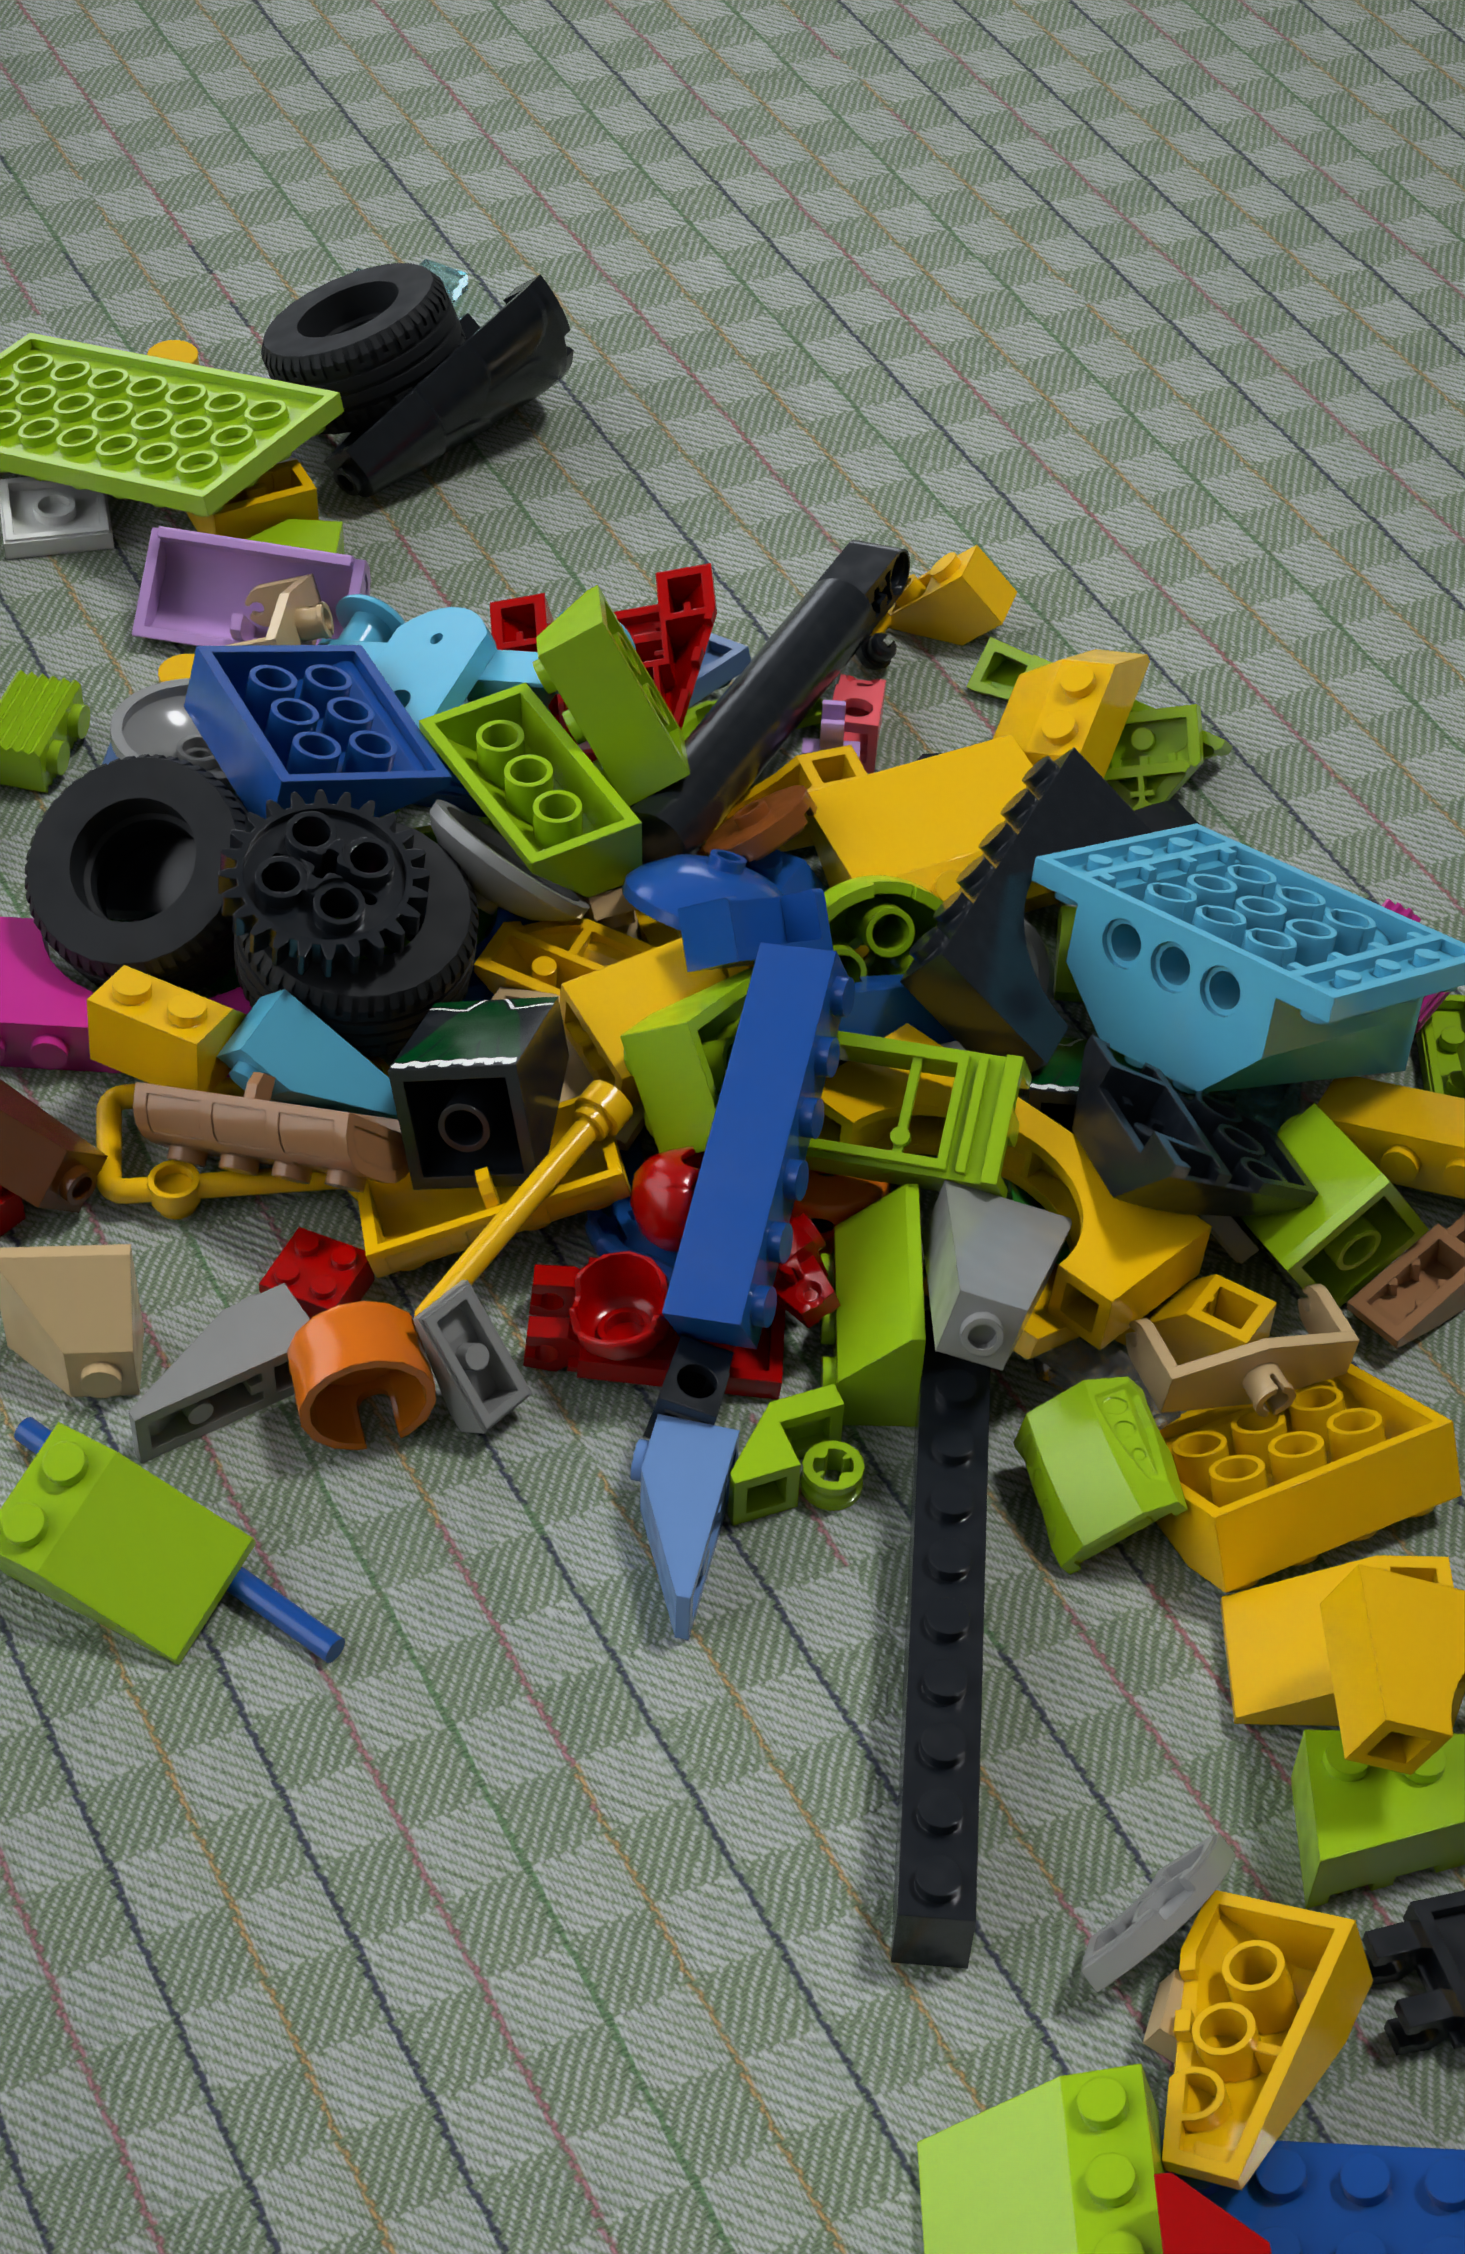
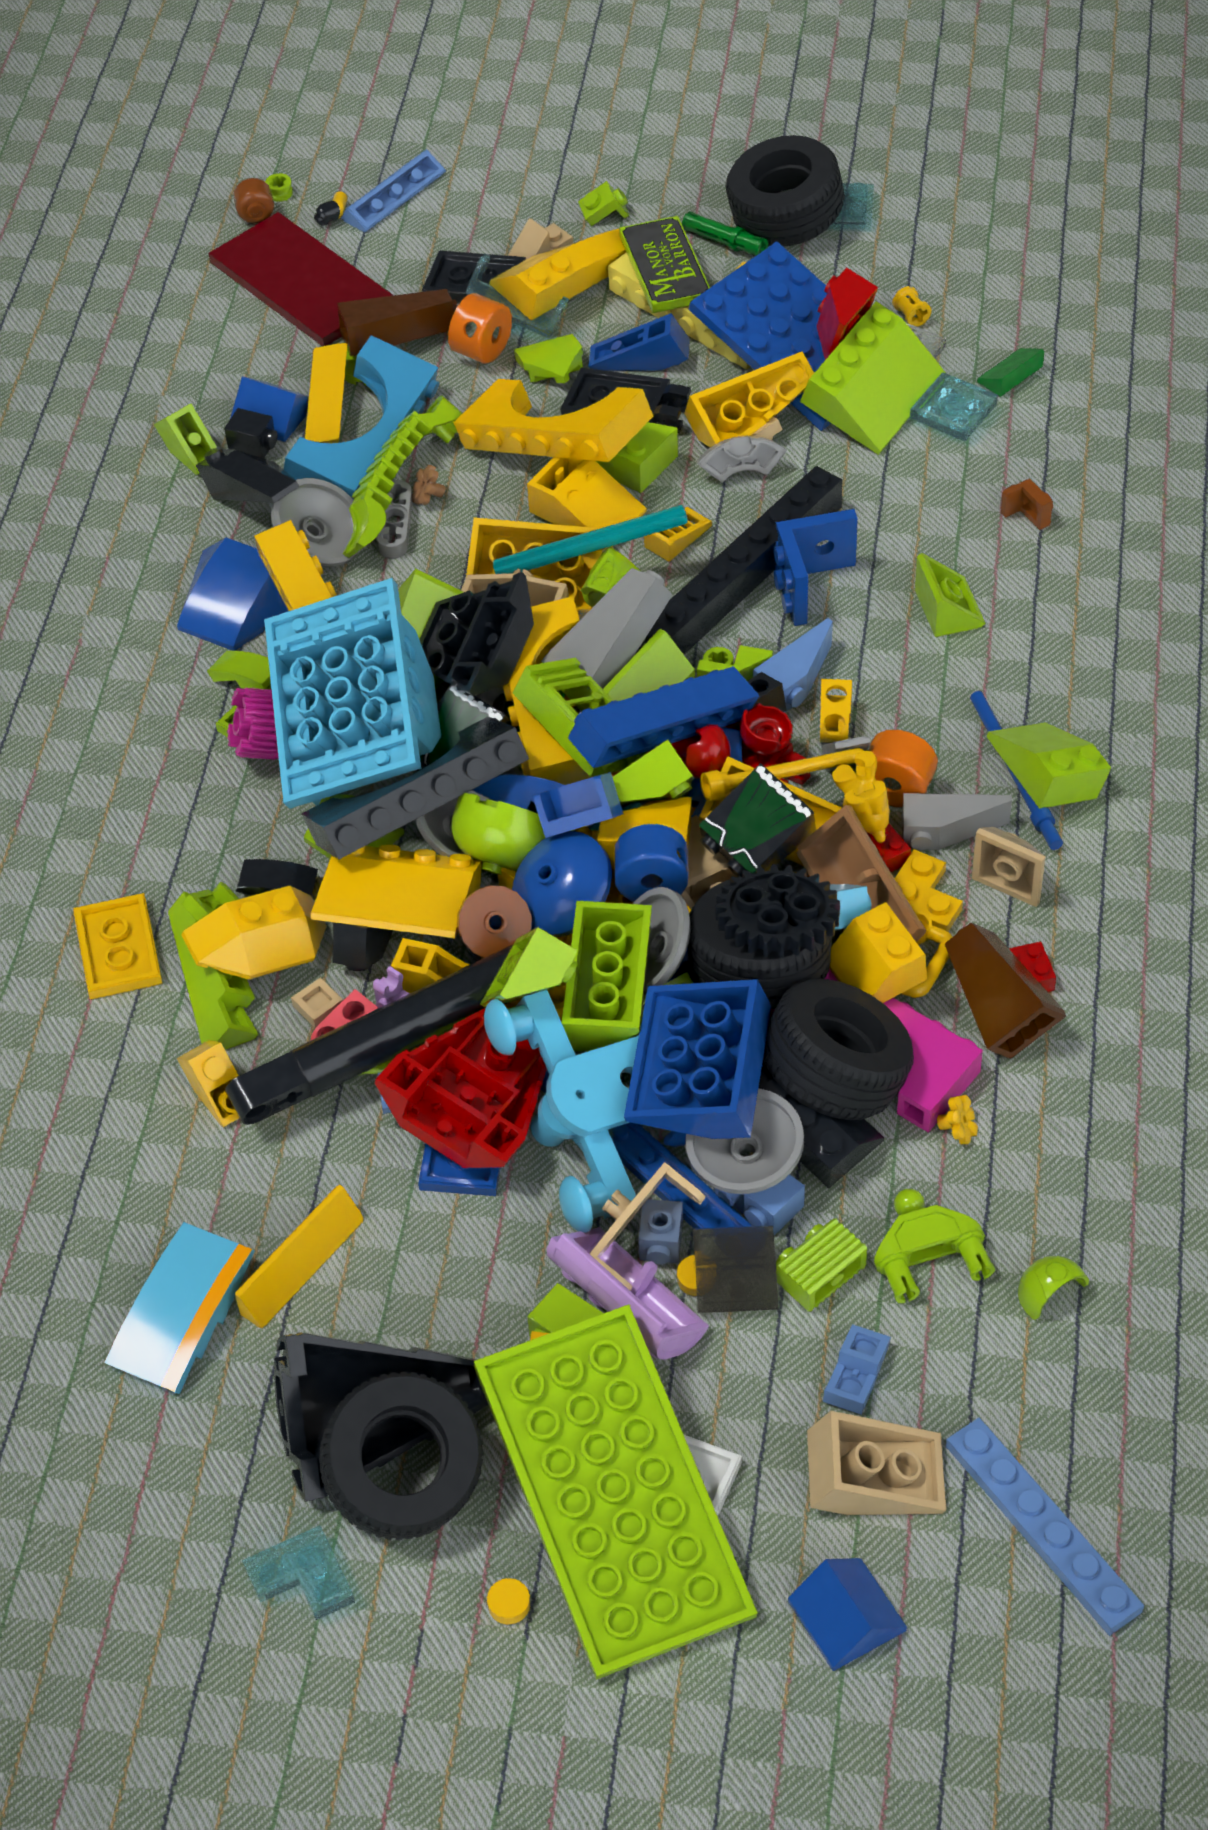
camera: 140 degrees left, 5 degrees up
(144, 665) = (735, 1269): none -> clear smoke slope
(210, 1241) = (918, 882): none -> yellow plate
(362, 1253) = (865, 793): none -> yellow animal
(493, 2153) = (1030, 501): none -> dark orange bracket
(518, 1806) = (945, 598): none -> lime slope
(558, 1470) = (835, 710): none -> yellow leg
(573, 922) = (647, 857): none -> blue piece
(668, 503) = (298, 1257): none -> yellow slope
(748, 412) = (180, 1307): none -> medium azure slope
(847, 1677) = (799, 556): none -> blue bracket
(924, 731) = (316, 1002): none -> tan plate
(1140, 1655) = (670, 547): none -> yellow slope
(1206, 1483) = (592, 541): none -> teal axle
(1252, 698) = (117, 946): none -> yellow tile

